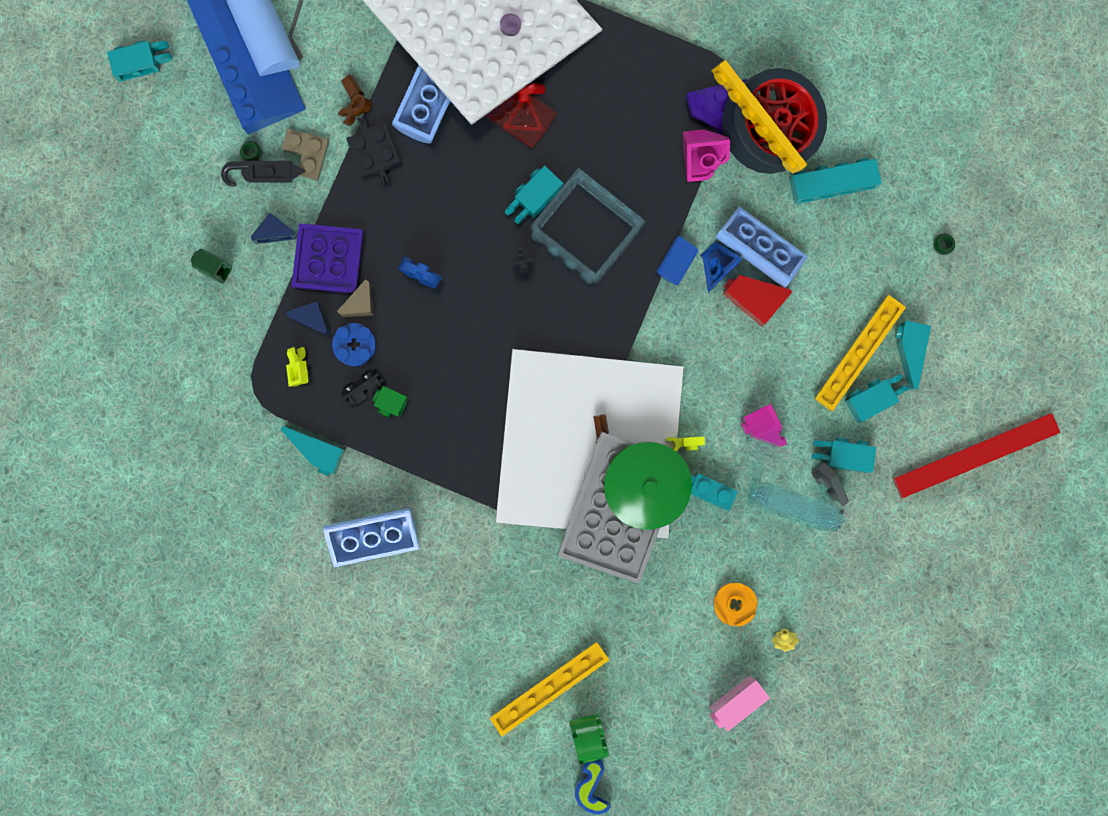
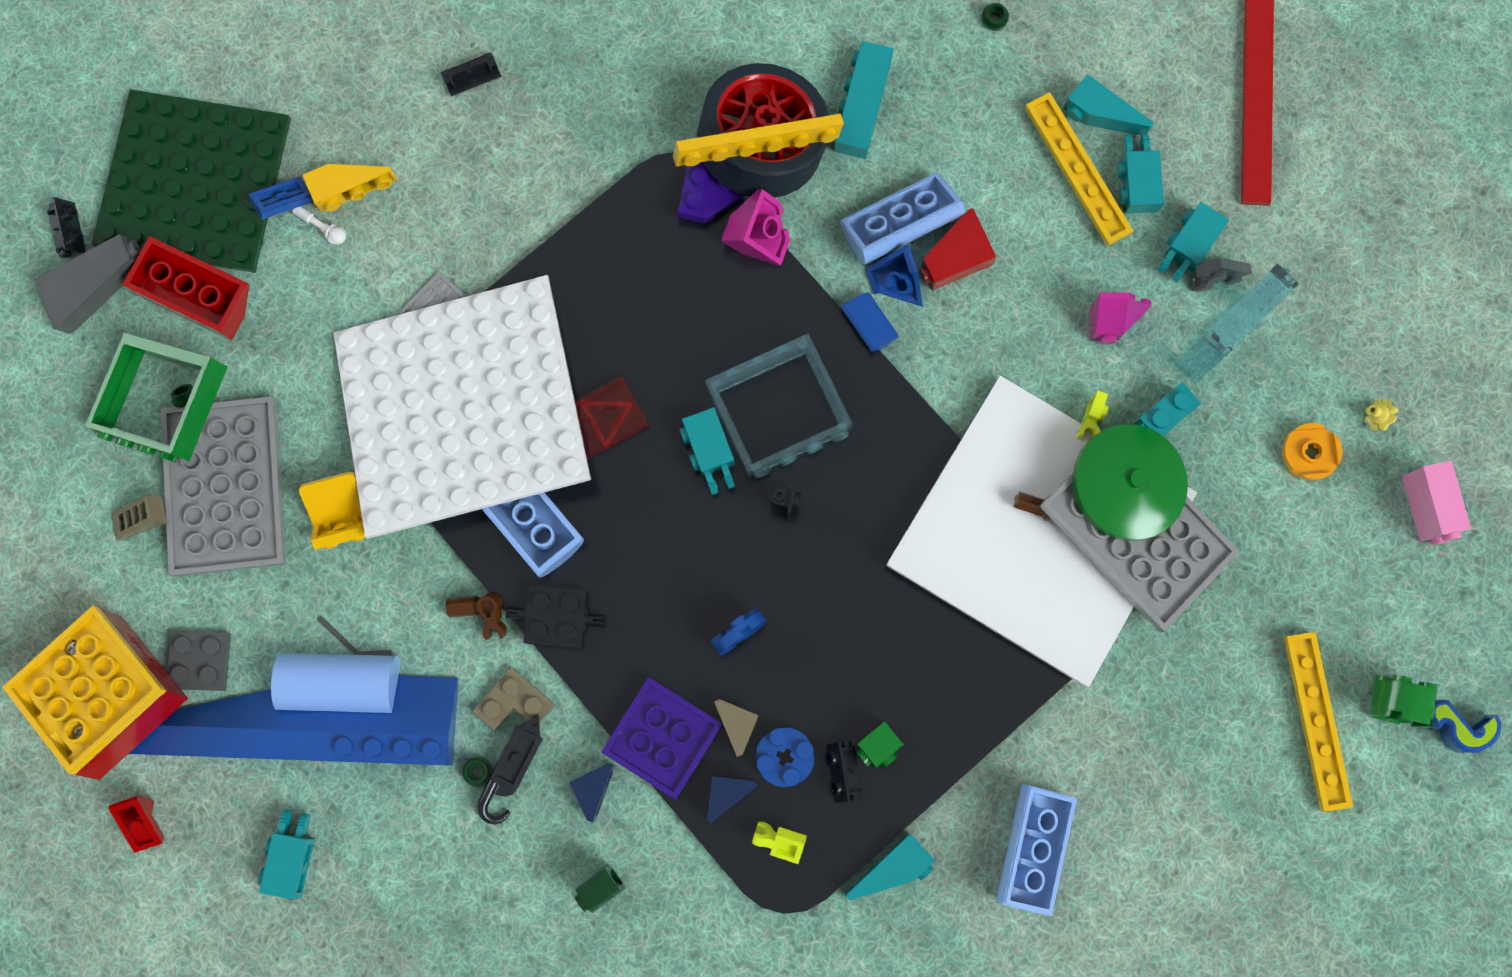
camera: 60 degrees left, 5 degrees down
(510, 24) = (490, 376): clear purple tile -> none
(533, 88) = (579, 389): red arm -> none

